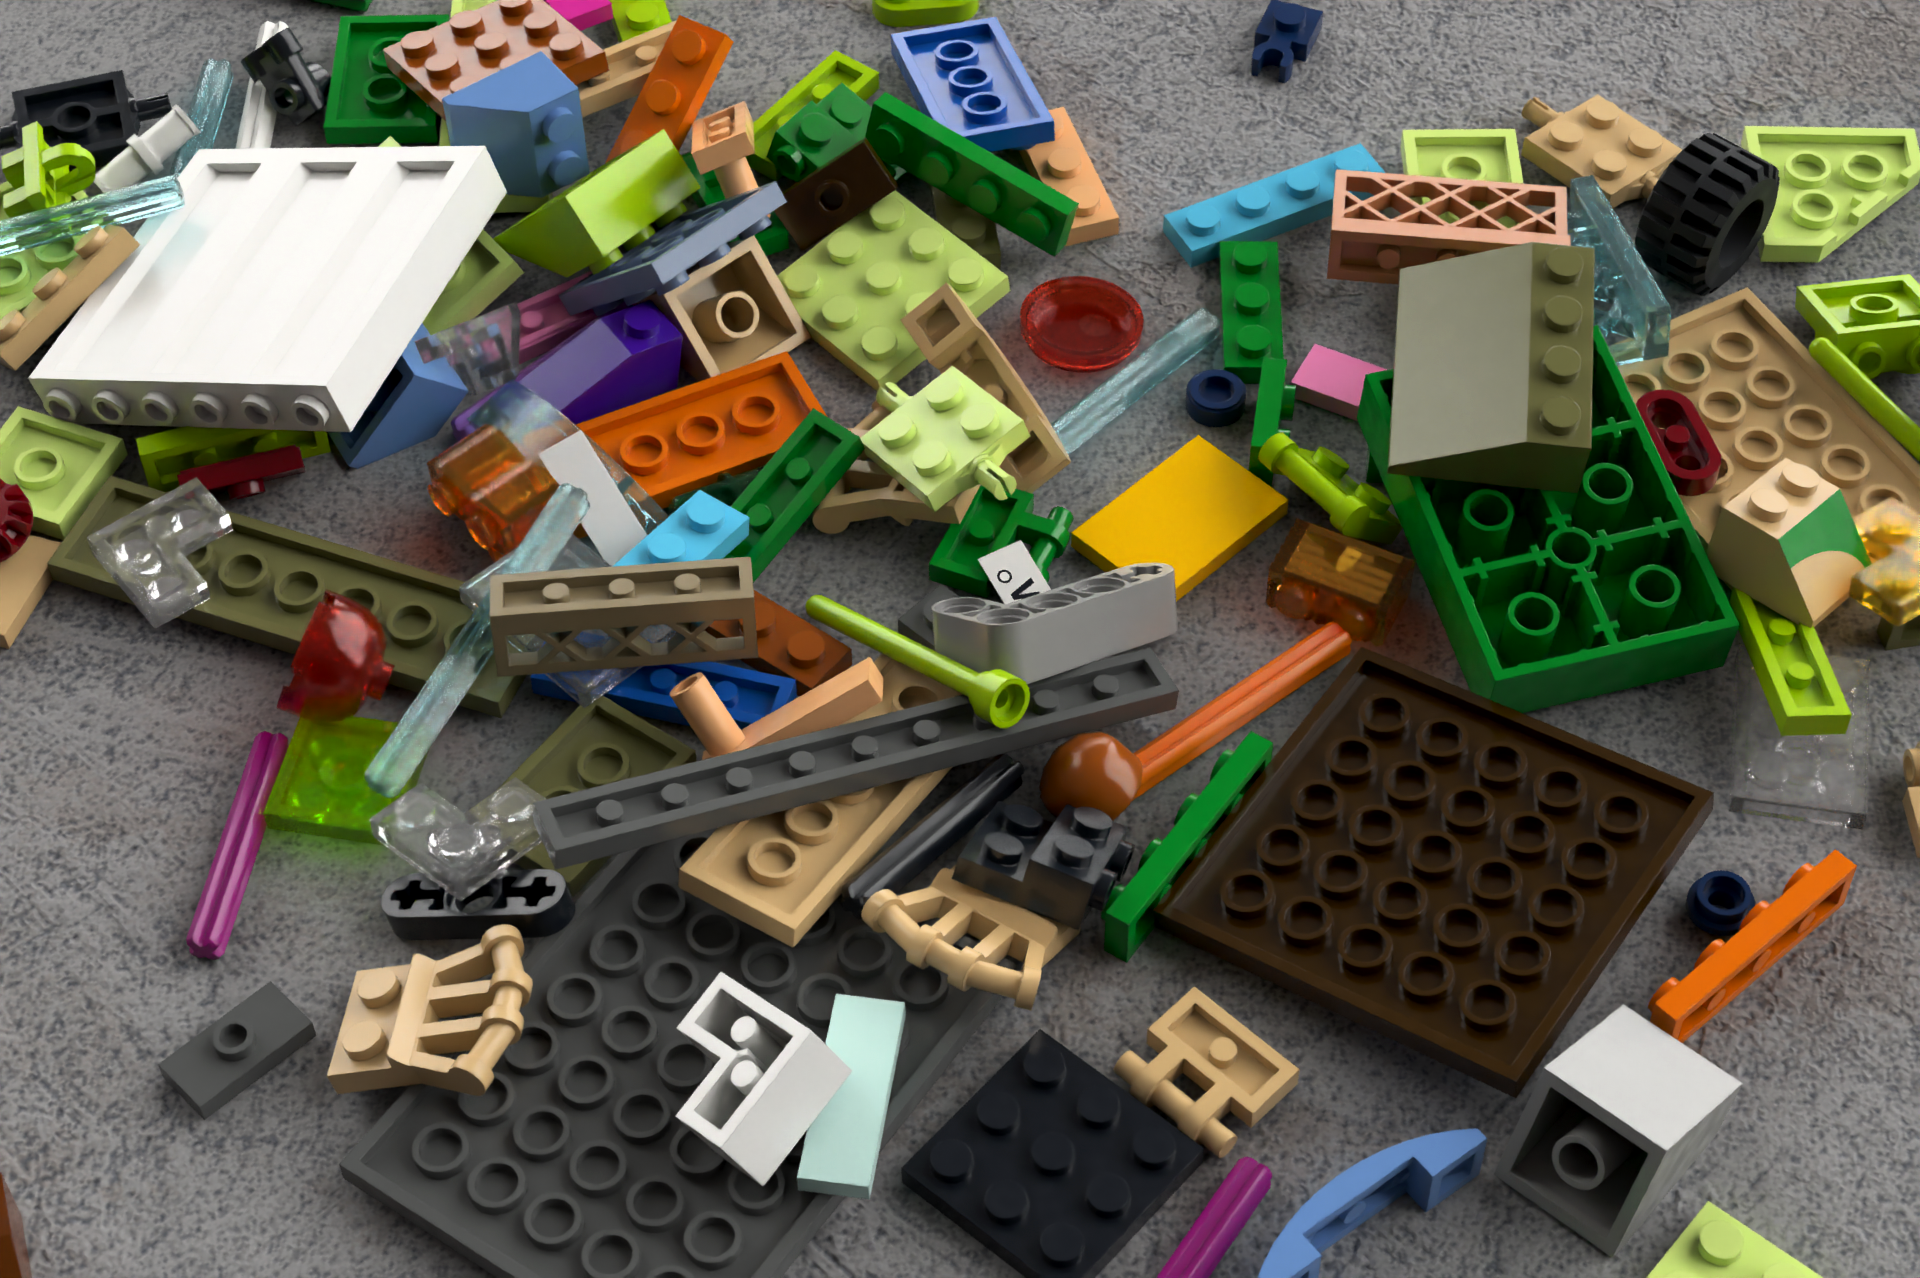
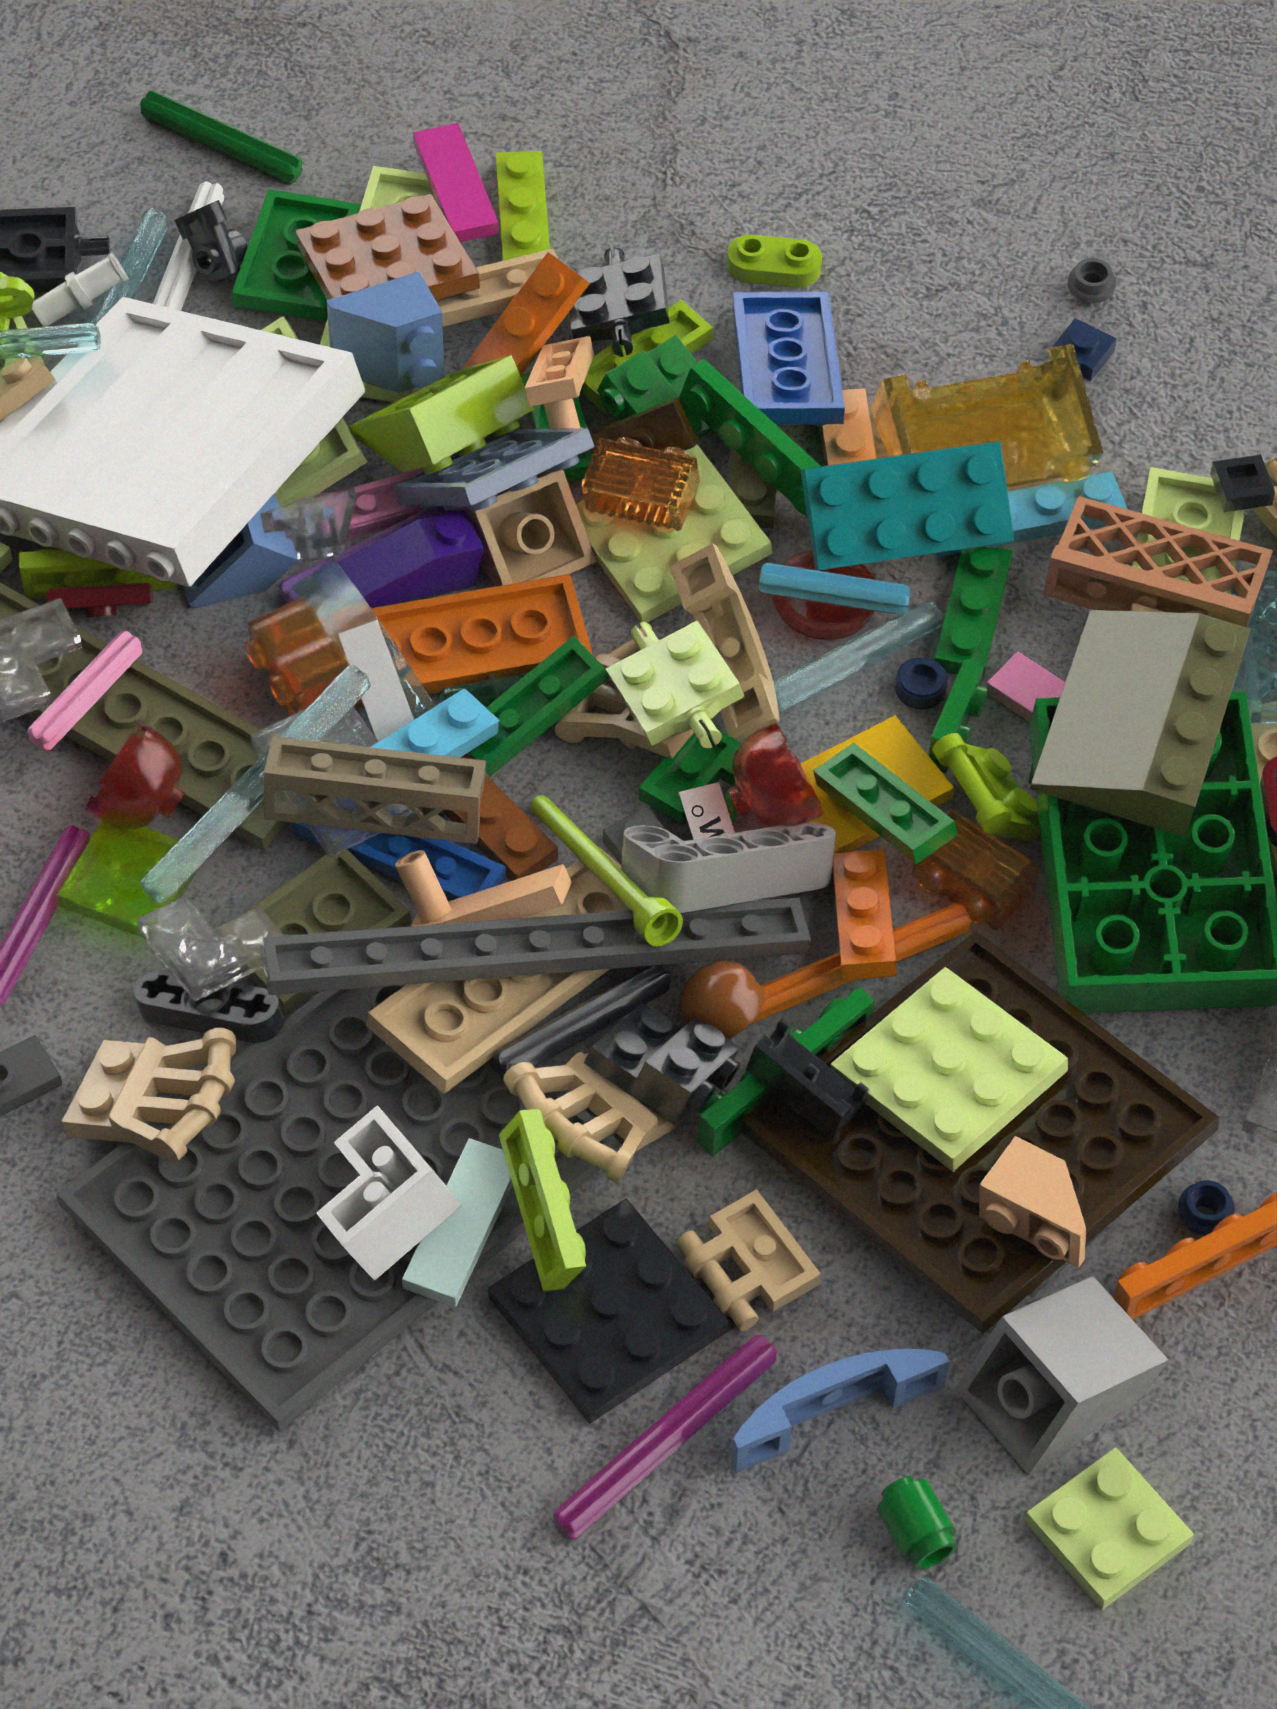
camera: 10 degrees right, 5 degrees up
(247, 576) = (84, 691): none -> bright pink axle
(770, 61) = (621, 300): none -> plate
(846, 237) = (641, 482): none -> clear orange brick
(947, 1046) = (542, 1199): none -> lime plate
(1086, 523) = (772, 781): none -> clear red cylinder
(1093, 312) = (834, 589): none -> medium azure axle
(1151, 208) = (907, 505): none -> teal plate
(1218, 121) = (1034, 412): none -> clear yellow windscreen
(1221, 524) = (885, 803): none -> green plate
(1221, 848) = (805, 1081): none -> black hinge
(1230, 655) = (864, 915): none -> orange plate
(1382, 802) = (950, 1068): none -> yellowish green plate
(1511, 125) = (1242, 483): none -> black plate
(1541, 927) = (1035, 1200): none -> light nougat slope

